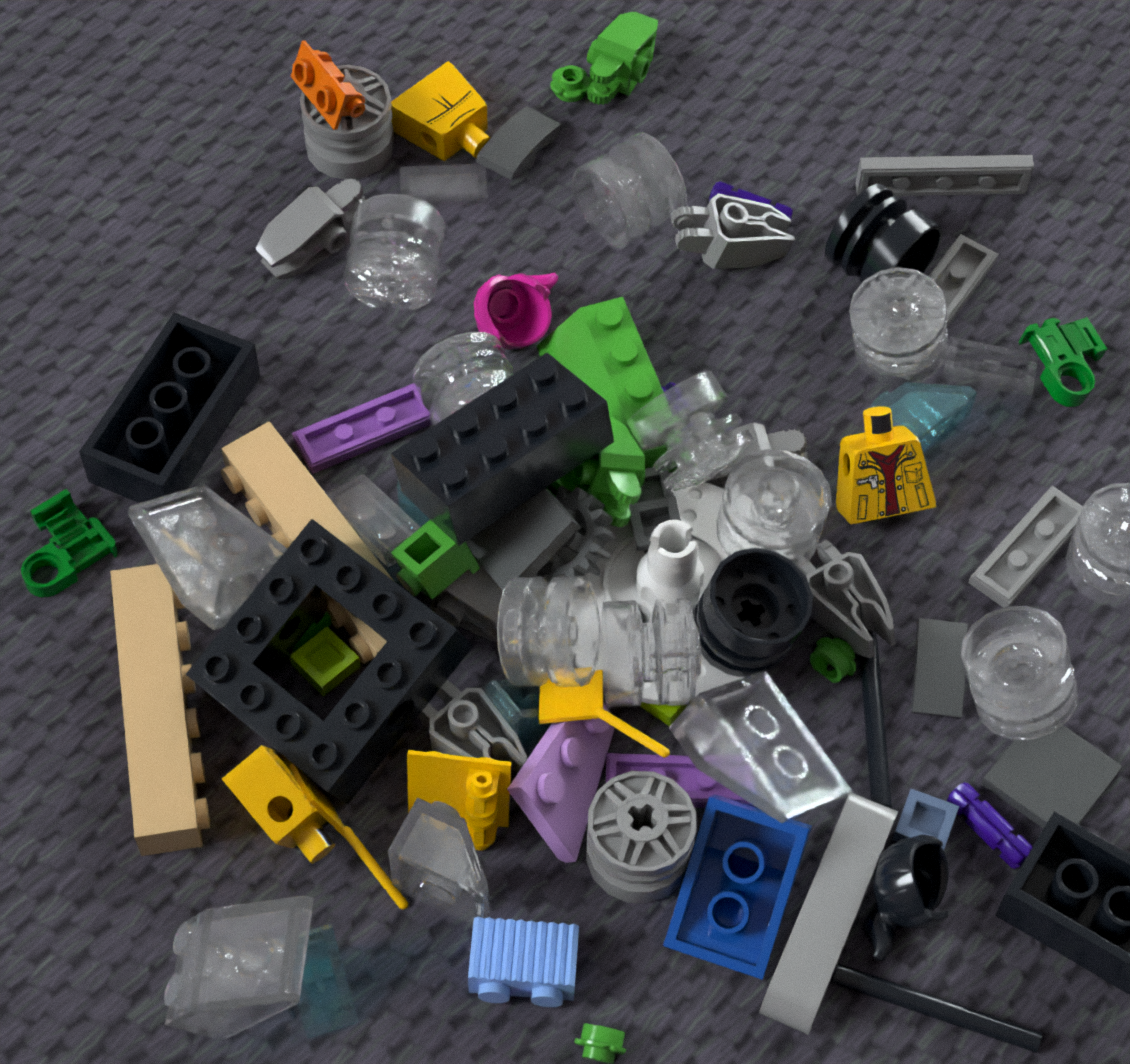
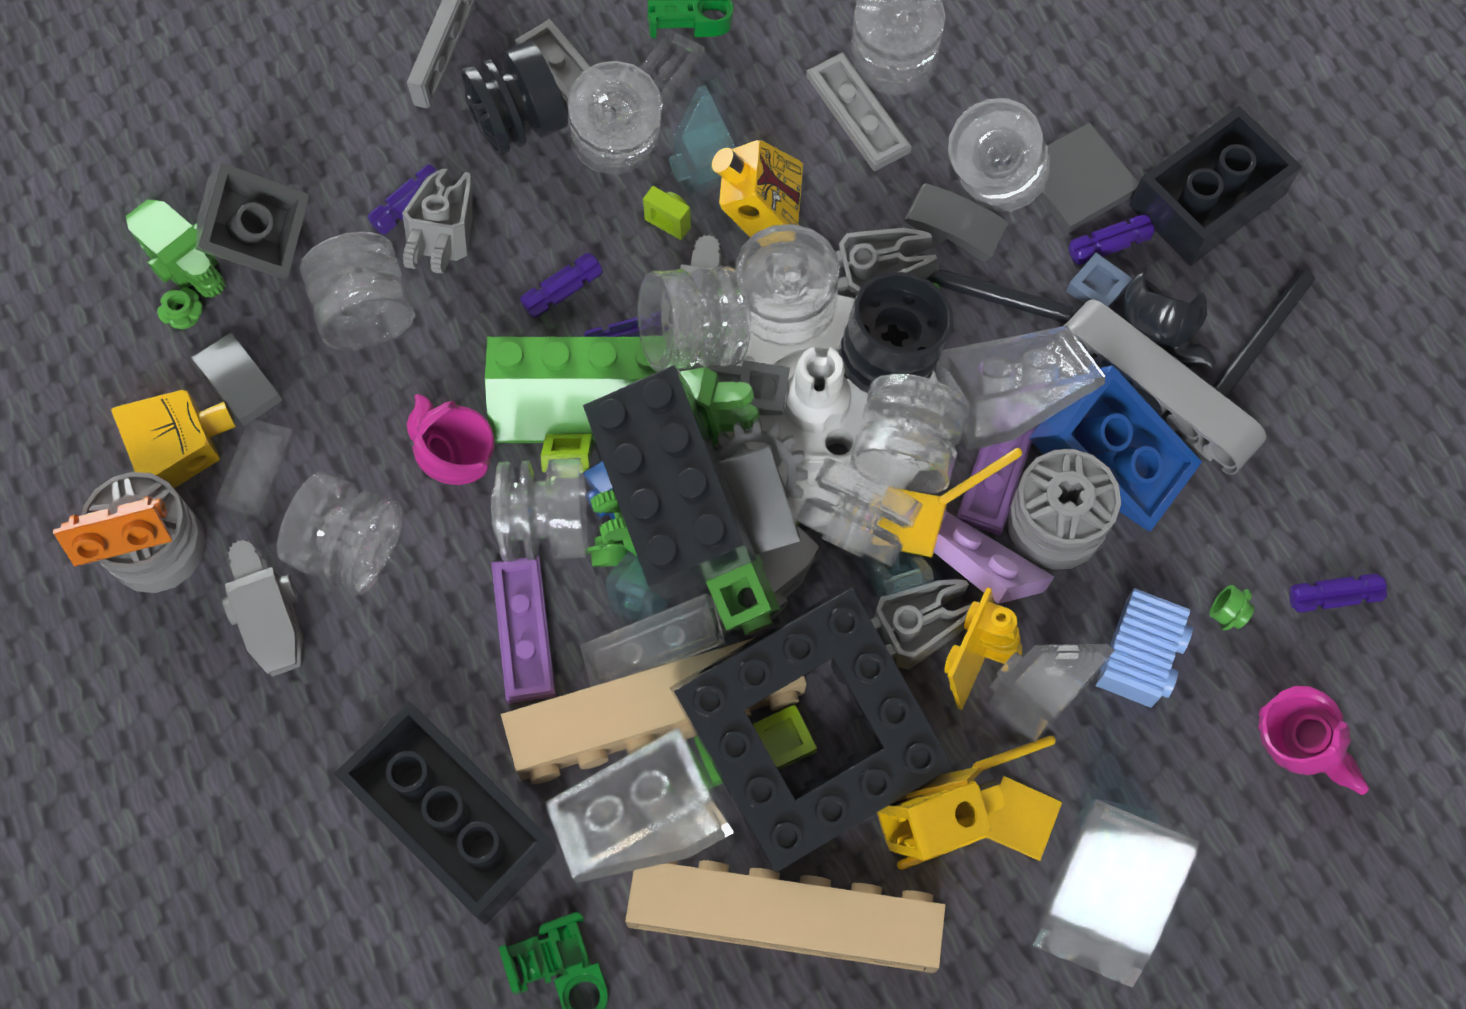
camera: 70 degrees left, 10 degrees up
(322, 882) = (1020, 825): none -> yellow piece
(659, 90) = (250, 220): none -> dark grey slope
(716, 351) = (561, 285): none -> dark purple axle
(830, 409) = (667, 212): none -> lime plate

